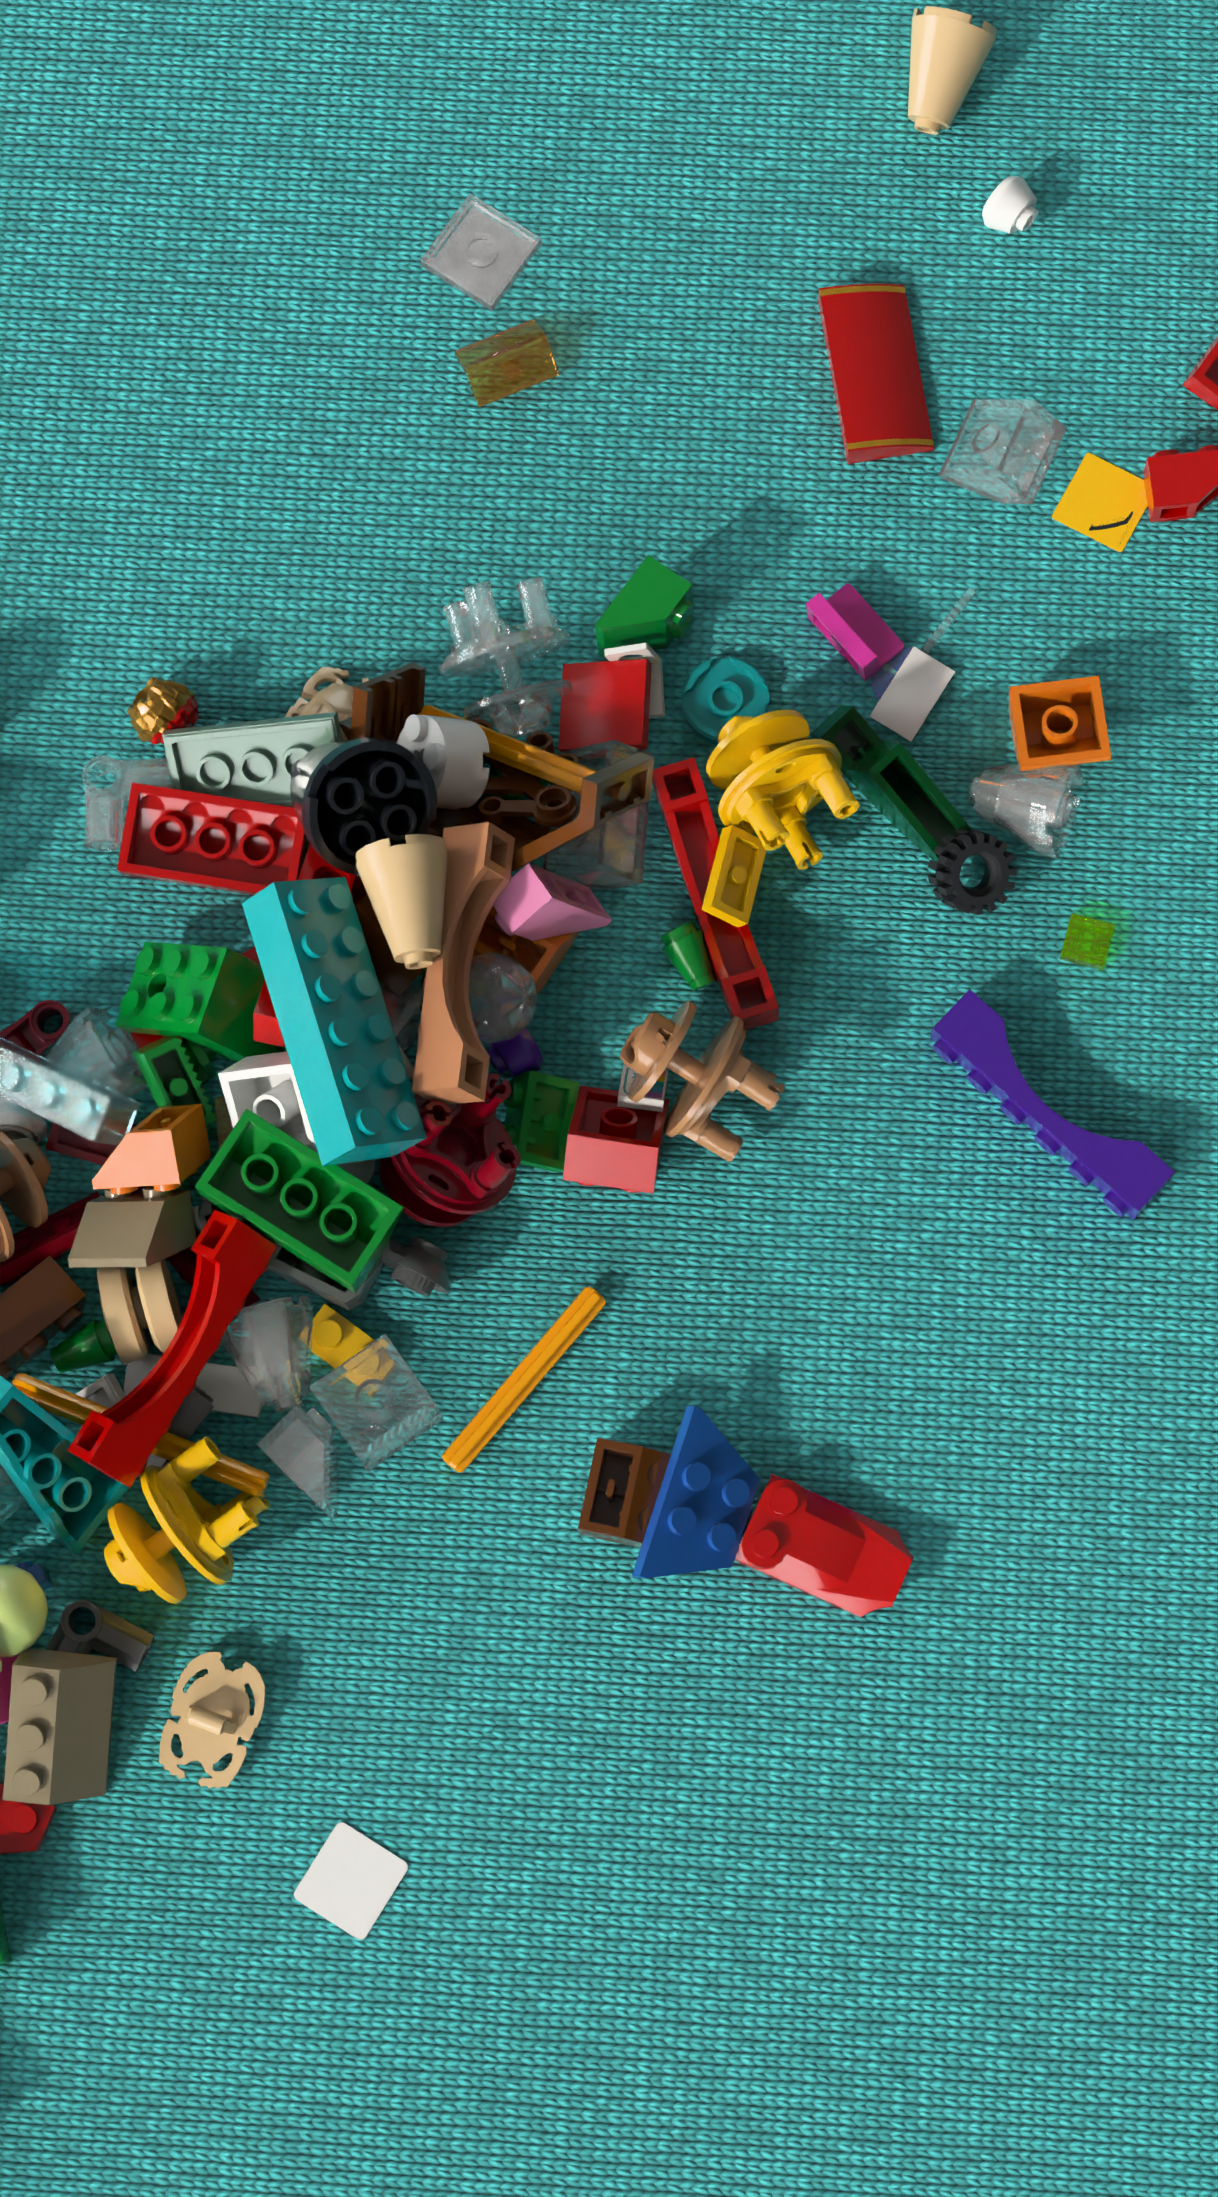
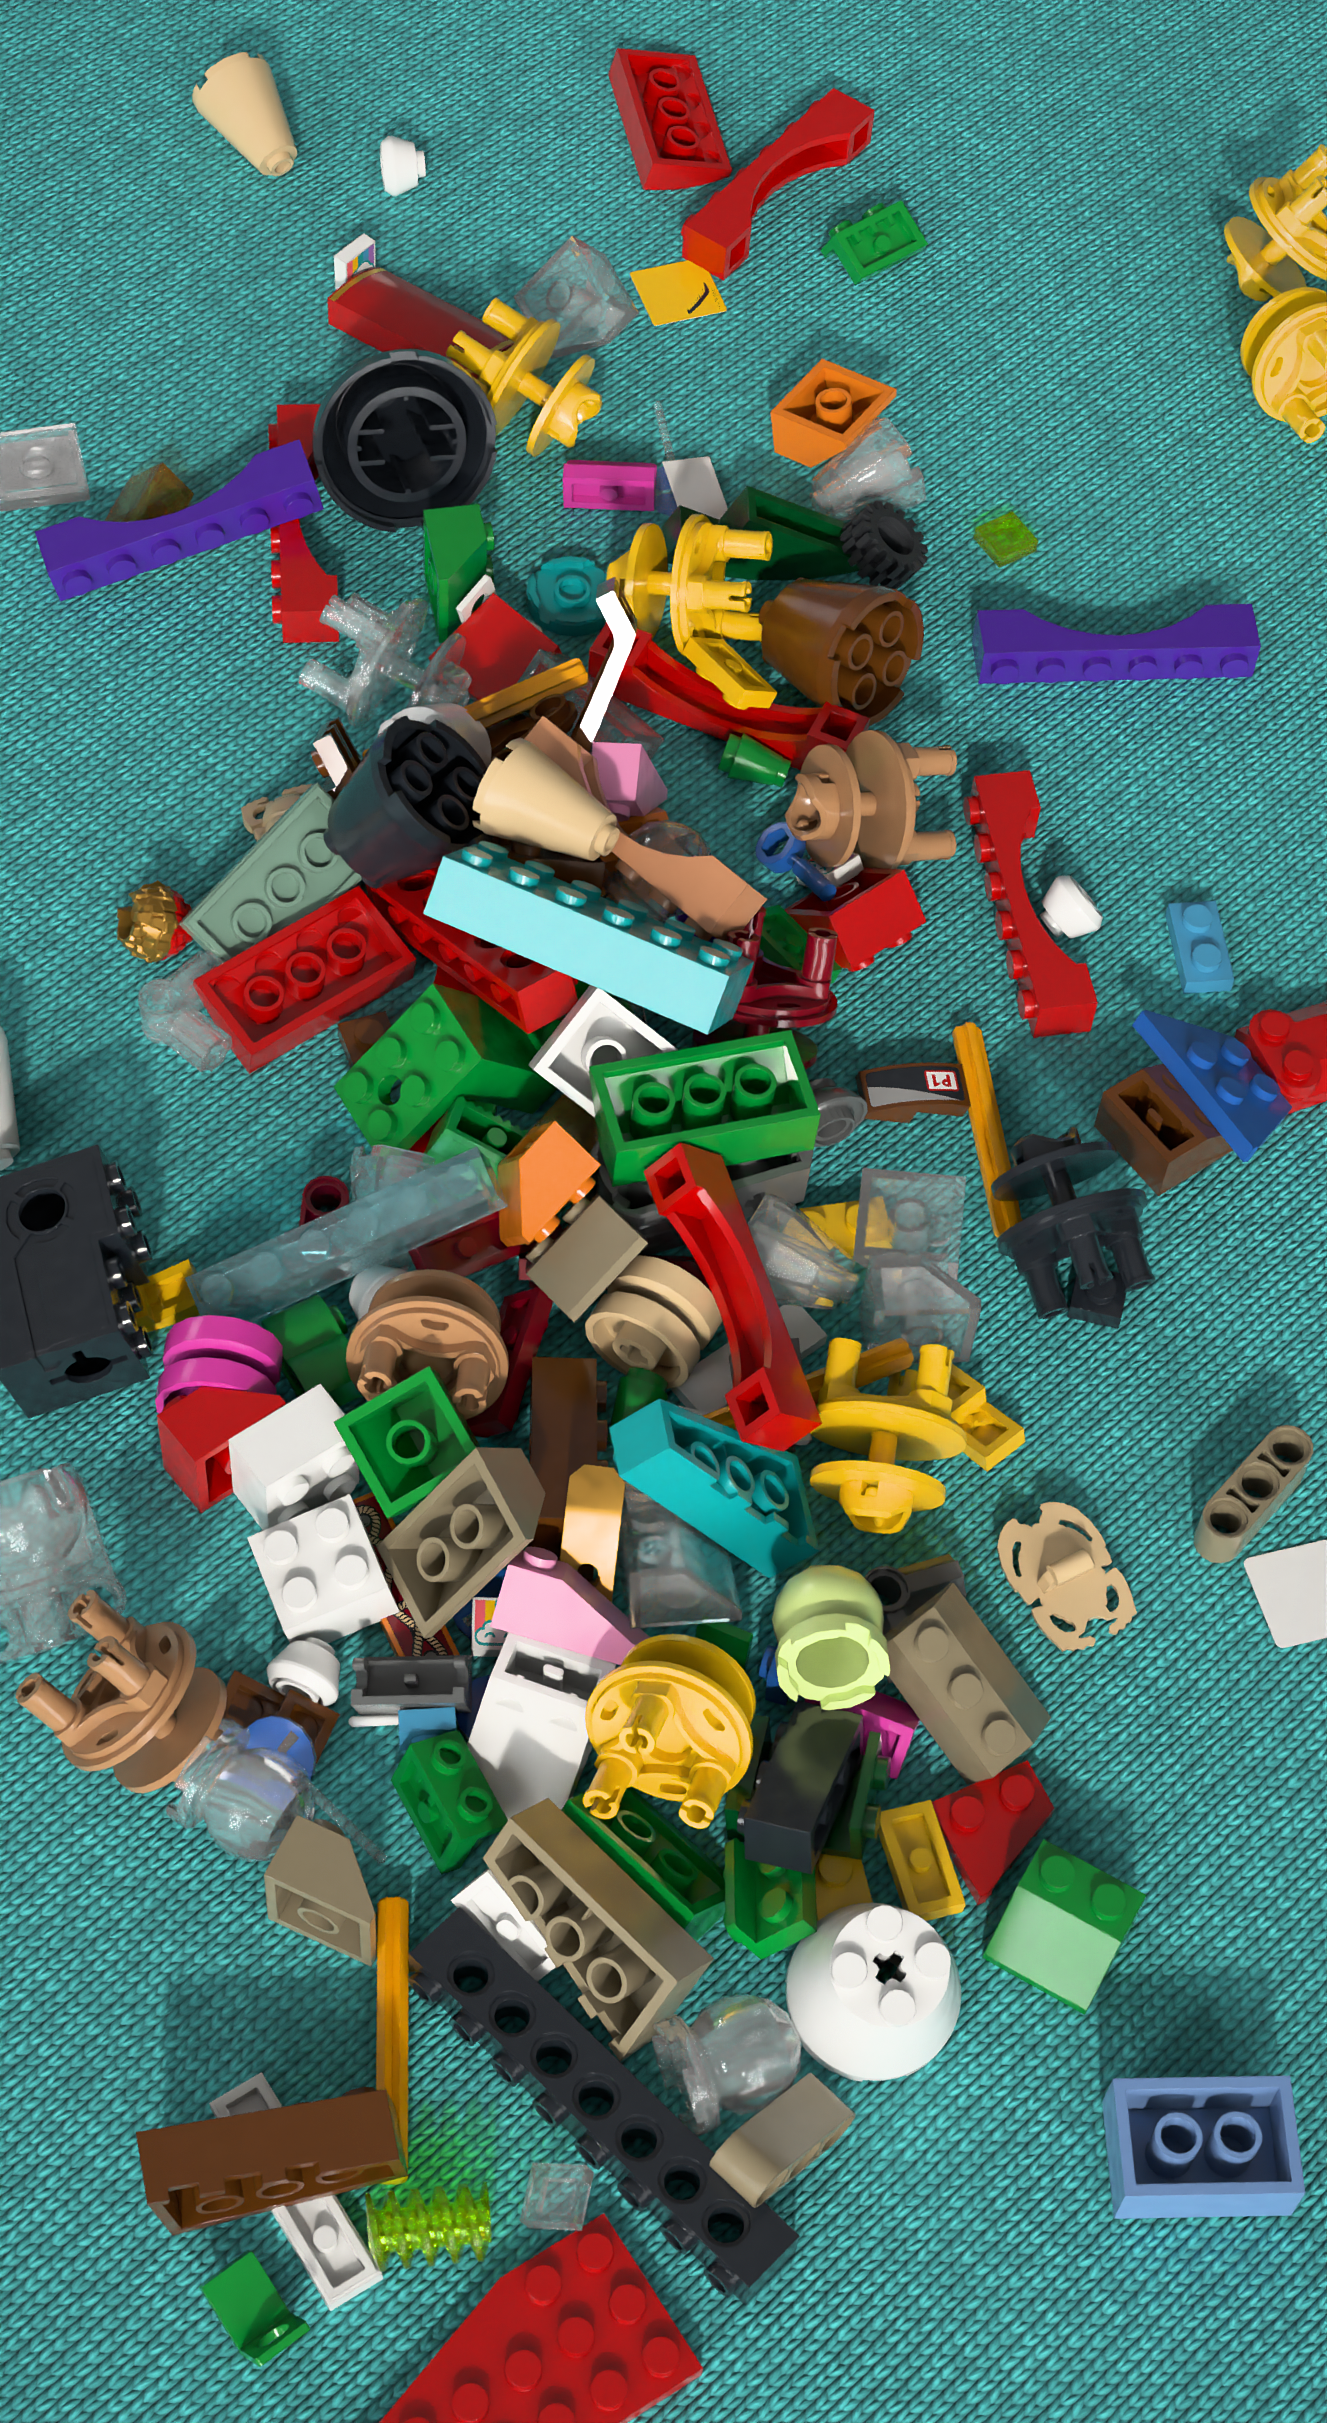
camera: 60 degrees left, 20 degrees down
(213, 924) = (361, 1034): none -> reddish brown plate
(281, 1557) = (988, 1430): none -> yellow slope
(361, 1786) = (1246, 1514): none -> dark tan beam
(458, 1562) = (1099, 1304): none -> black plate
(463, 1510) = (1073, 1224): none -> black piece
(507, 1304) = (904, 1089): none -> slope
(574, 433) = (95, 553): none -> dark purple arch
(616, 1072) = (792, 859): none -> blue piece
(669, 403) = (301, 579): none -> red arch
(716, 467) = (404, 438): none -> black cone
(766, 1278) = (1070, 909): none -> white cone
(808, 1163) = (1052, 988): none -> red arch
(828, 1388) = (1199, 947): none -> dark azure plate
(832, 929) = (843, 643): none -> reddish brown cone
(837, 489) = (515, 376): none -> yellow piece
(880, 269) = (354, 259): none -> white tile

